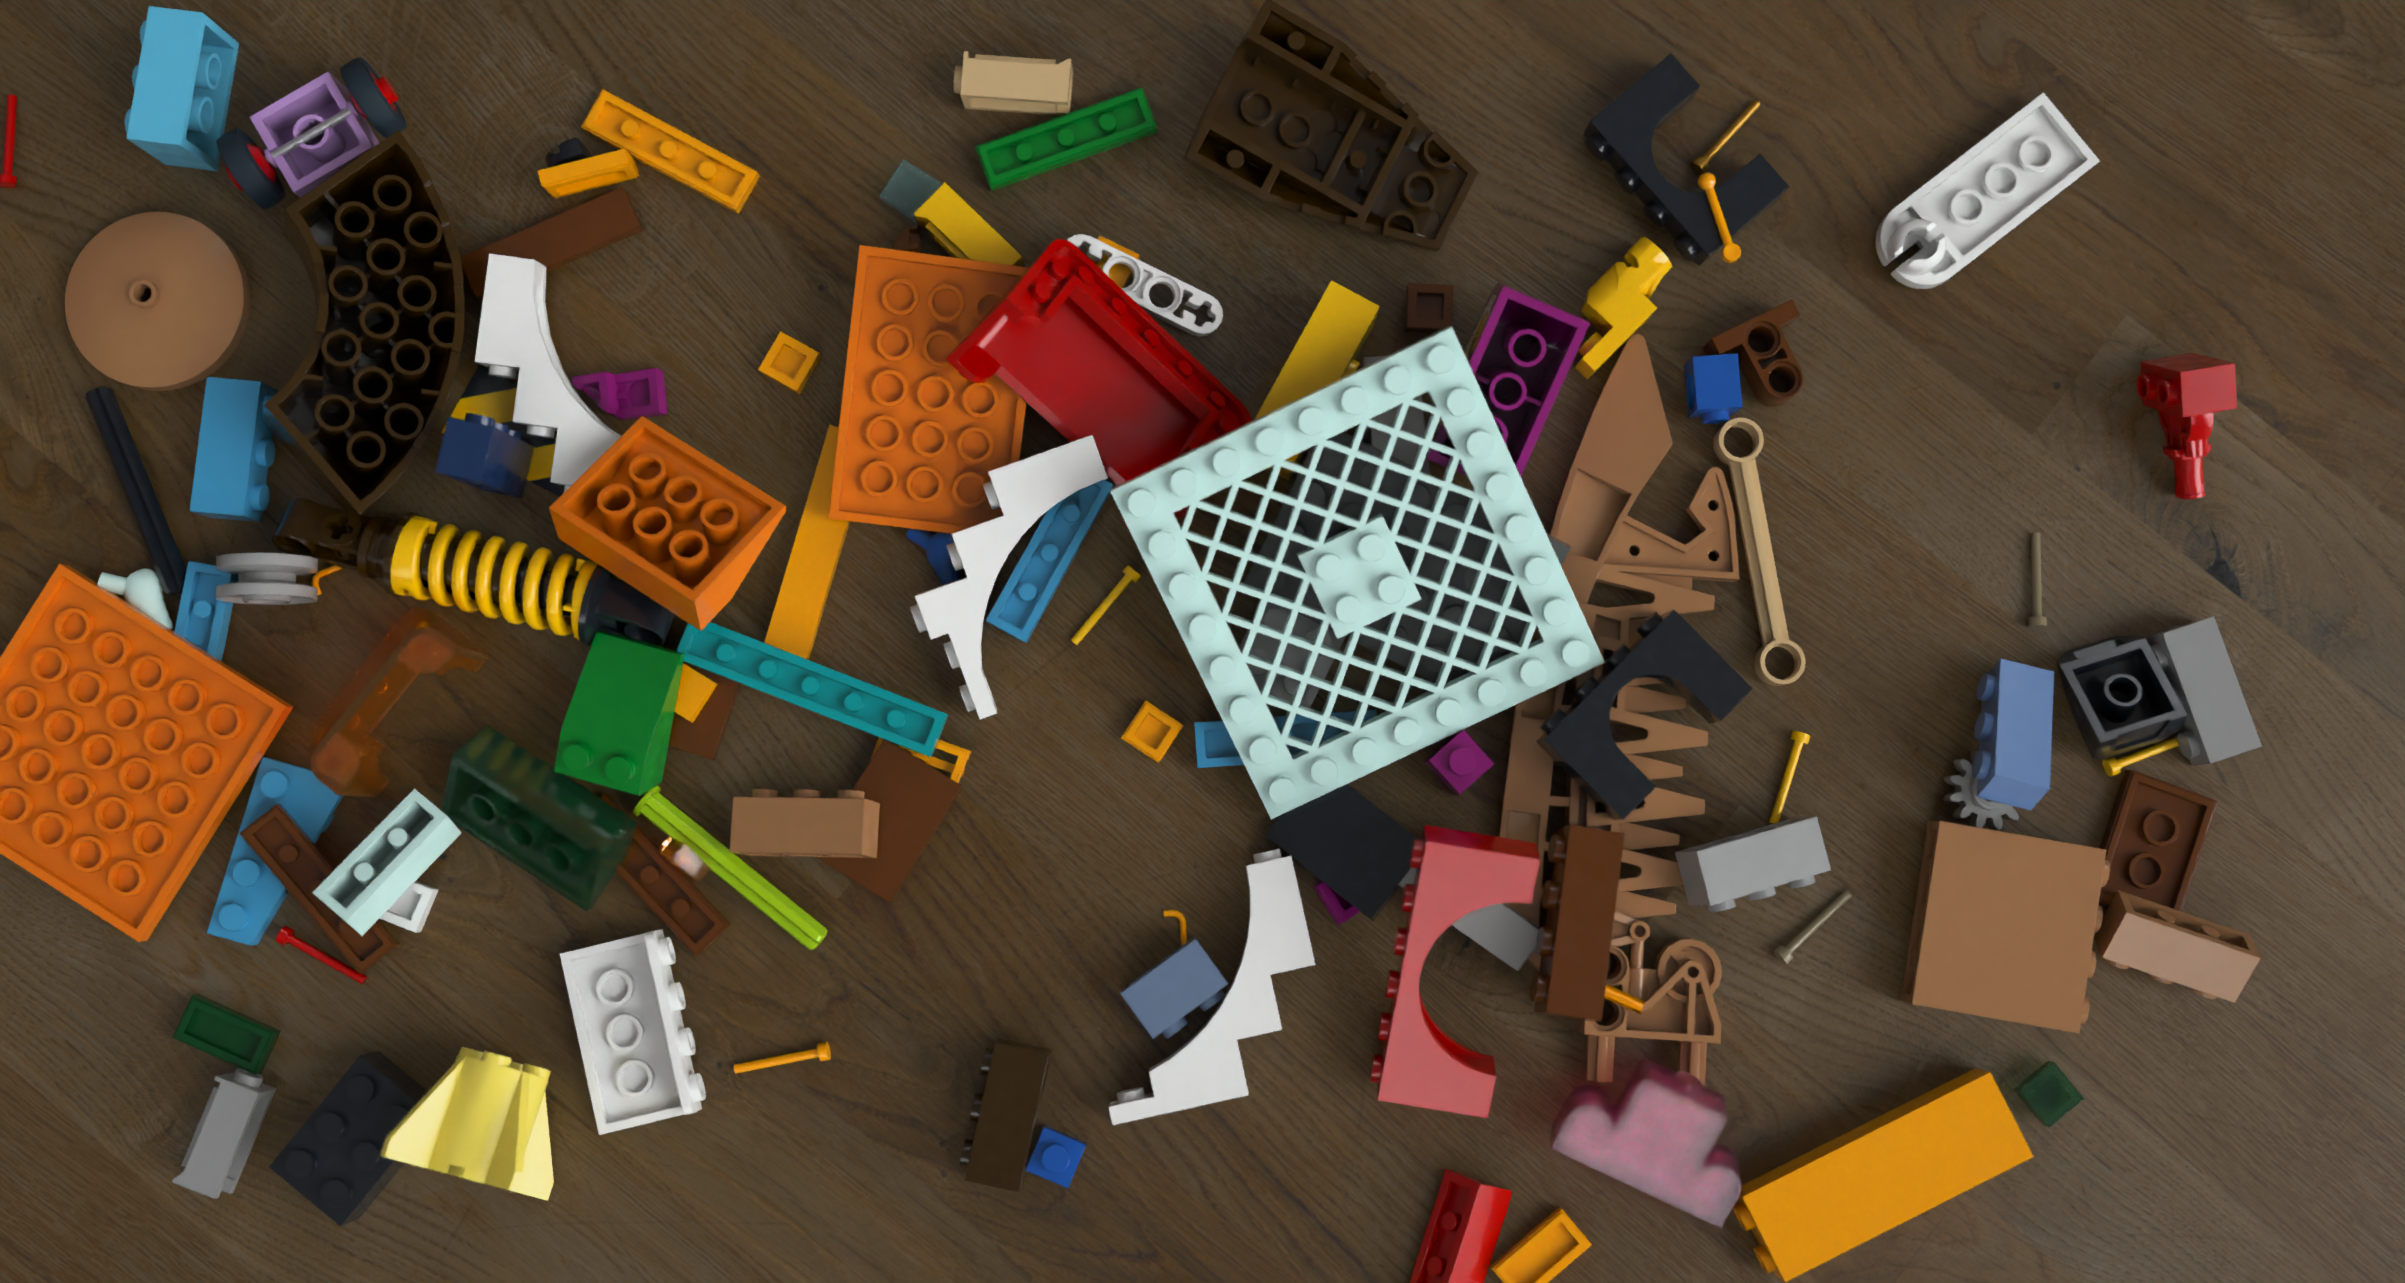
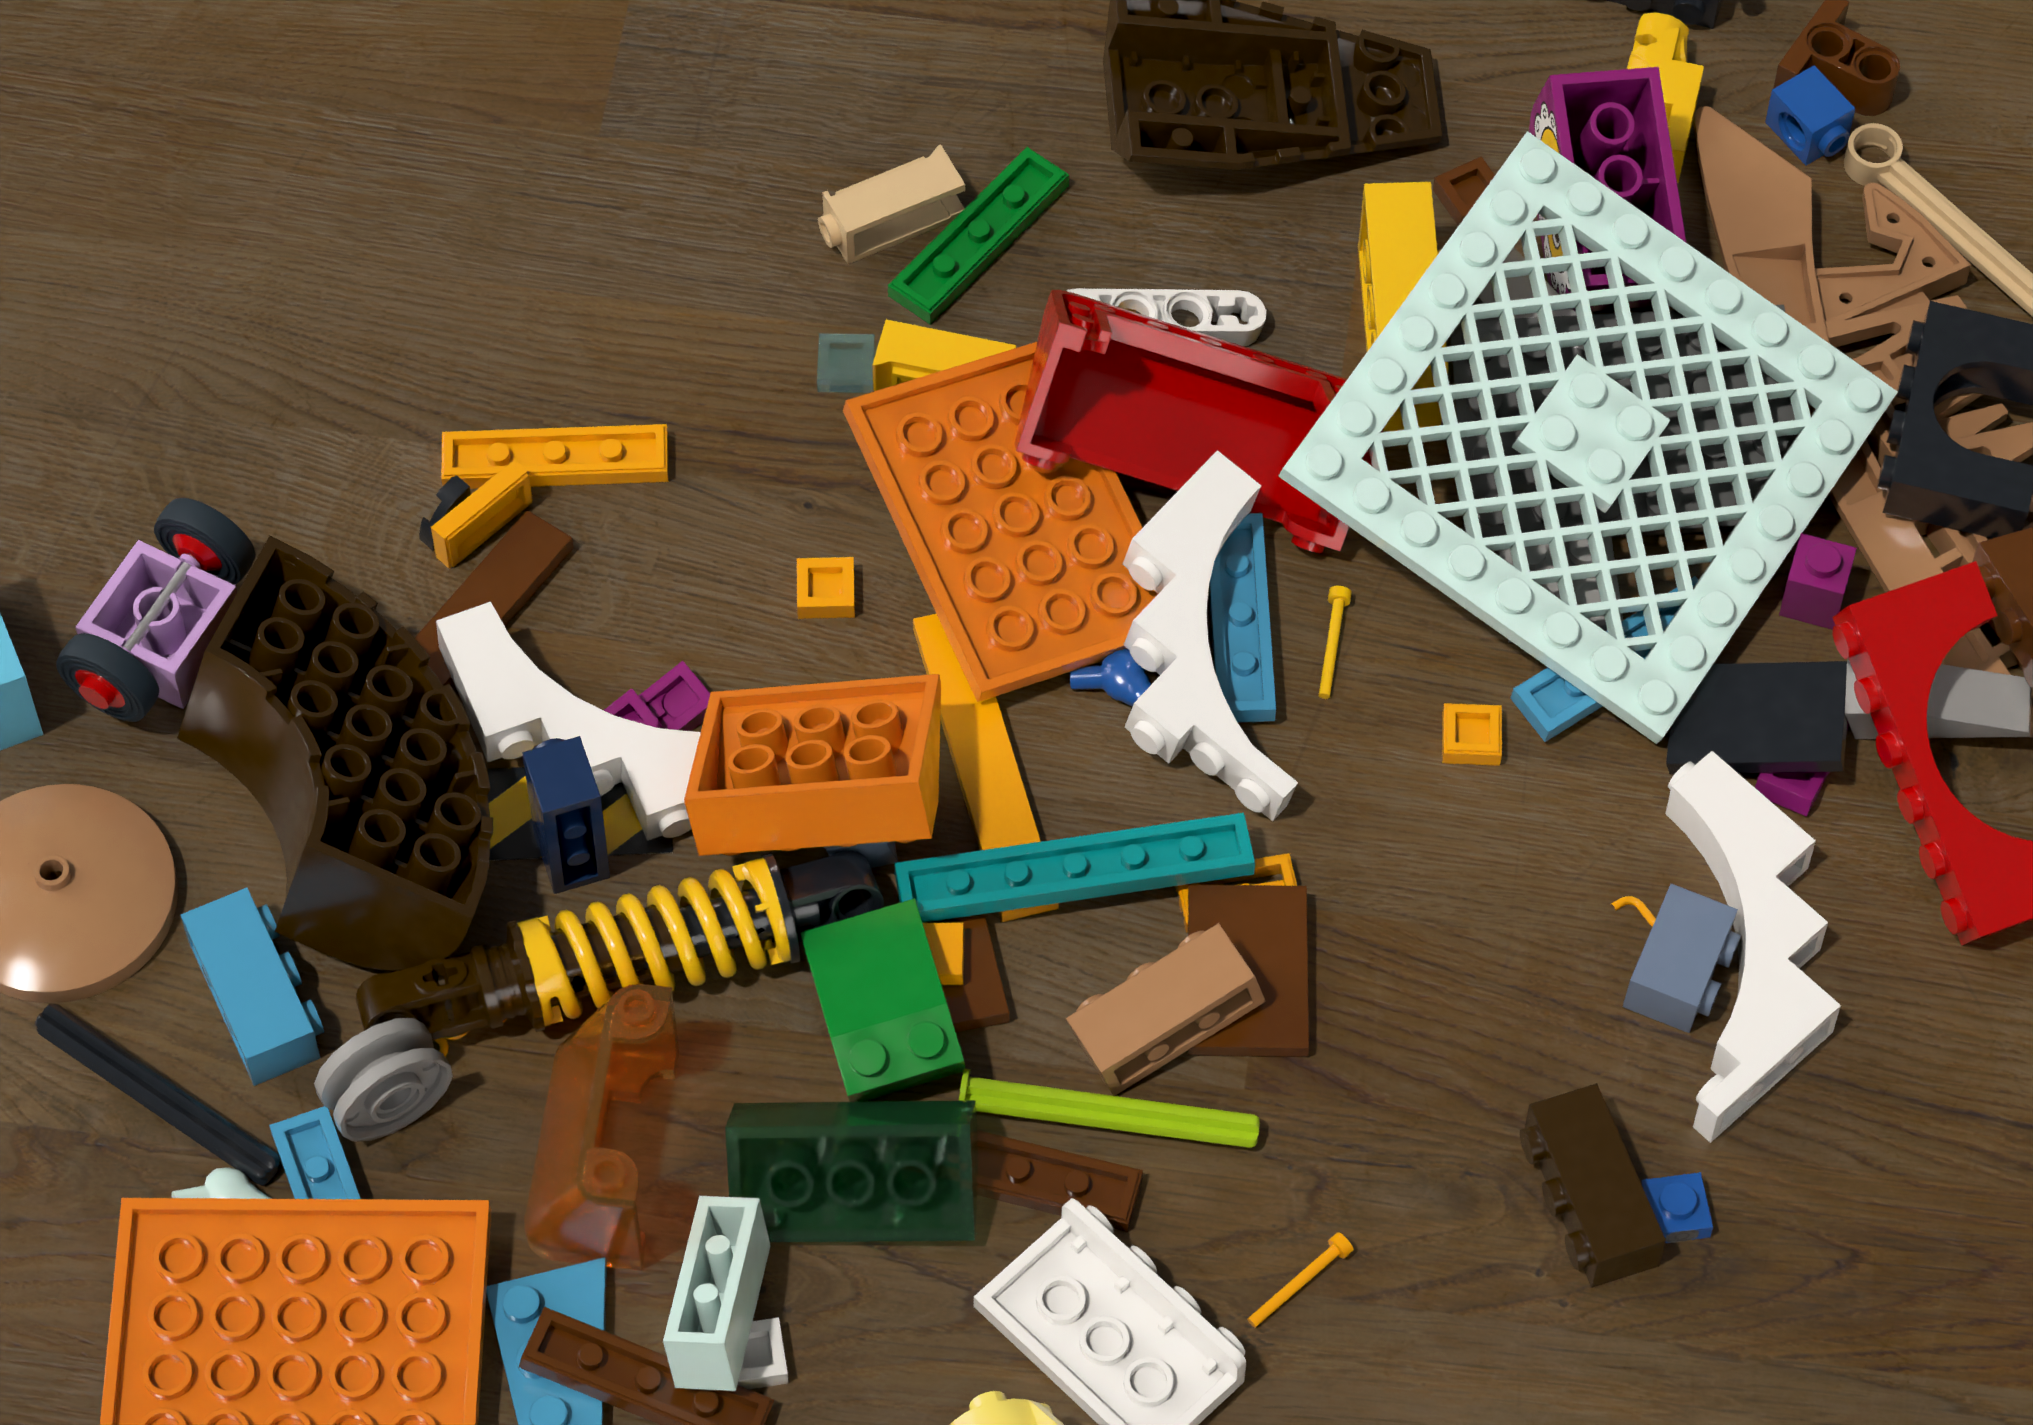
camera: 30 degrees left, 25 degrees down
(684, 859) = (1049, 1122): clear orange tile -> none

